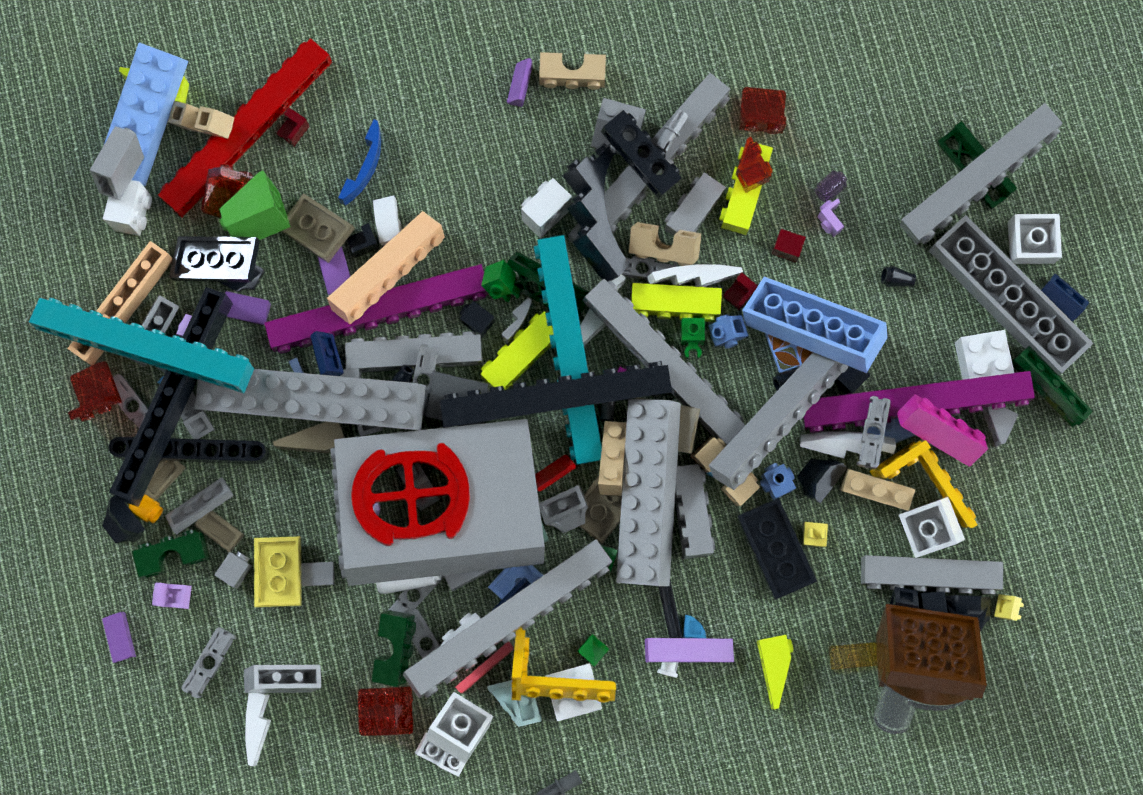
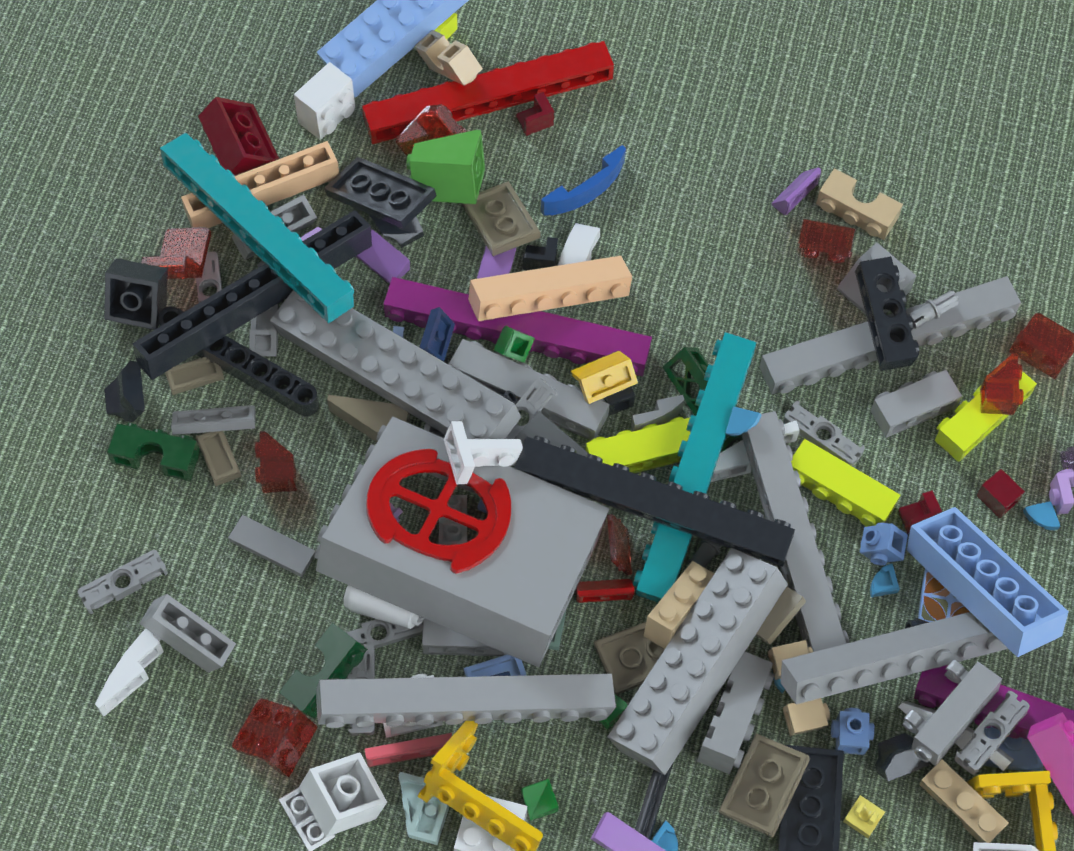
camera: 30 degrees right, 15 degrees down
(78, 271) = (237, 135): none -> dark red slope
(81, 444) = (135, 293): none -> black brick
(117, 163) = (340, 46): light grey brick -> none
(119, 637) = (49, 505): medium lavender slope -> none
(148, 509) = (159, 393): light orange brick -> none
(171, 595) = (128, 492): lavender bracket -> none
(234, 569) = (208, 501): light grey brick -> none
(267, 515) = (276, 467): none -> clear red slope
(277, 572) = (251, 528): light yellow tile -> none
(385, 326) = (514, 344): none -> green slope
(406, 442) = (471, 453): none -> white bracket
(465, 315) = (605, 376): none -> yellow panel
(500, 281) = (661, 363): green brick -> none
(546, 207) = (755, 315): white brick -> none
(546, 436) = (619, 544): none -> clear red piece
(565, 115) = (825, 240): none -> clear red bracket
(565, 510) = (595, 632): light grey slope -> none
(585, 300) = (742, 421): none -> dark azure tile
(588, 208) = (790, 366): black arch -> none
(646, 243) = (843, 406): tan arch -> none
(692, 334) = (841, 527): green brick -> none
(700, 273) = (880, 465): white slope -> none
(738, 552) = (764, 785): none -> dark tan tile
(741, 356) = (884, 582): none -> dark azure tile
(825, 244) = (1042, 515): none -> dark azure tile
(843, 433) = (955, 714): none -> light grey brick
(851, 380) = (1002, 663): black panel -> none

